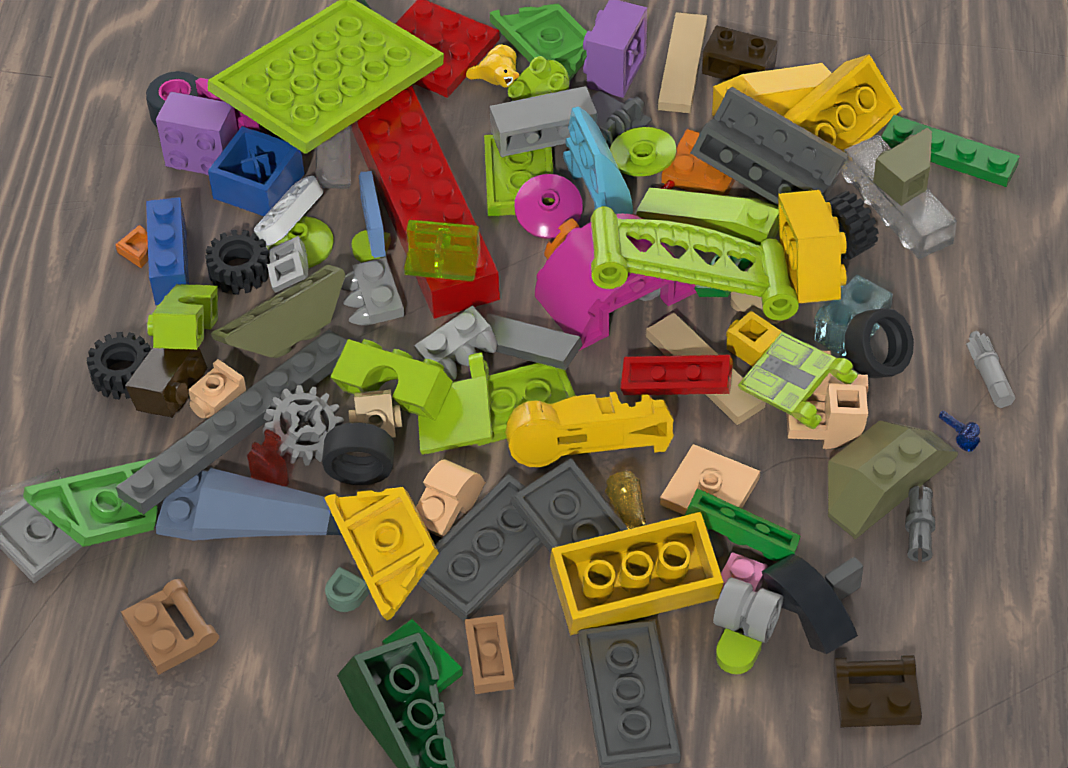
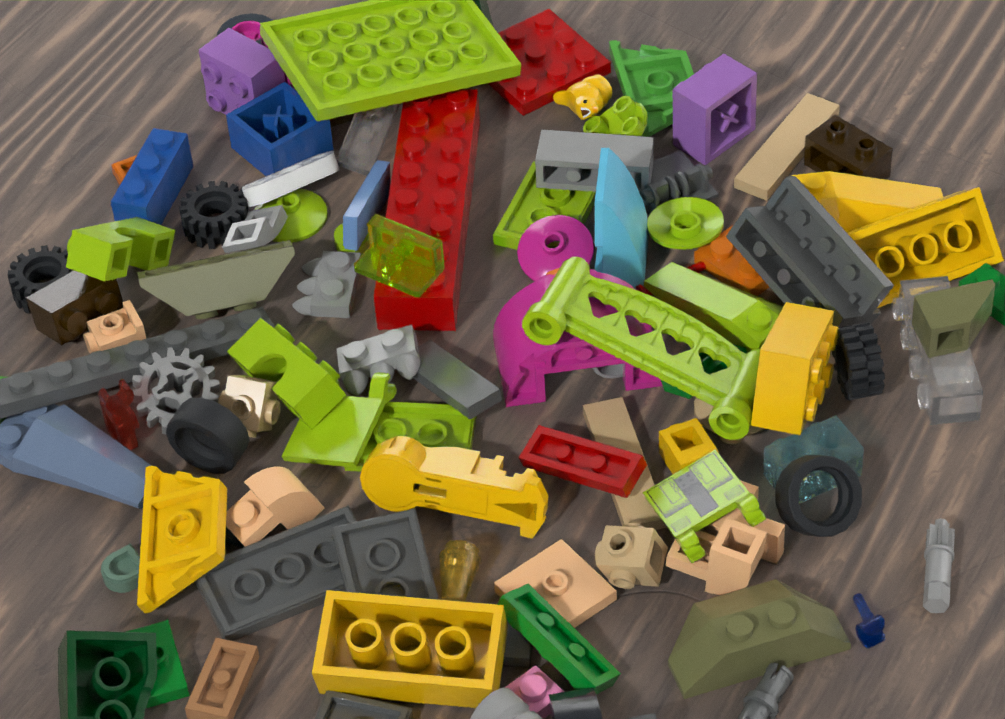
camera: 25 degrees right, 5 degrees down
(759, 439) = (631, 555): none -> tan brick

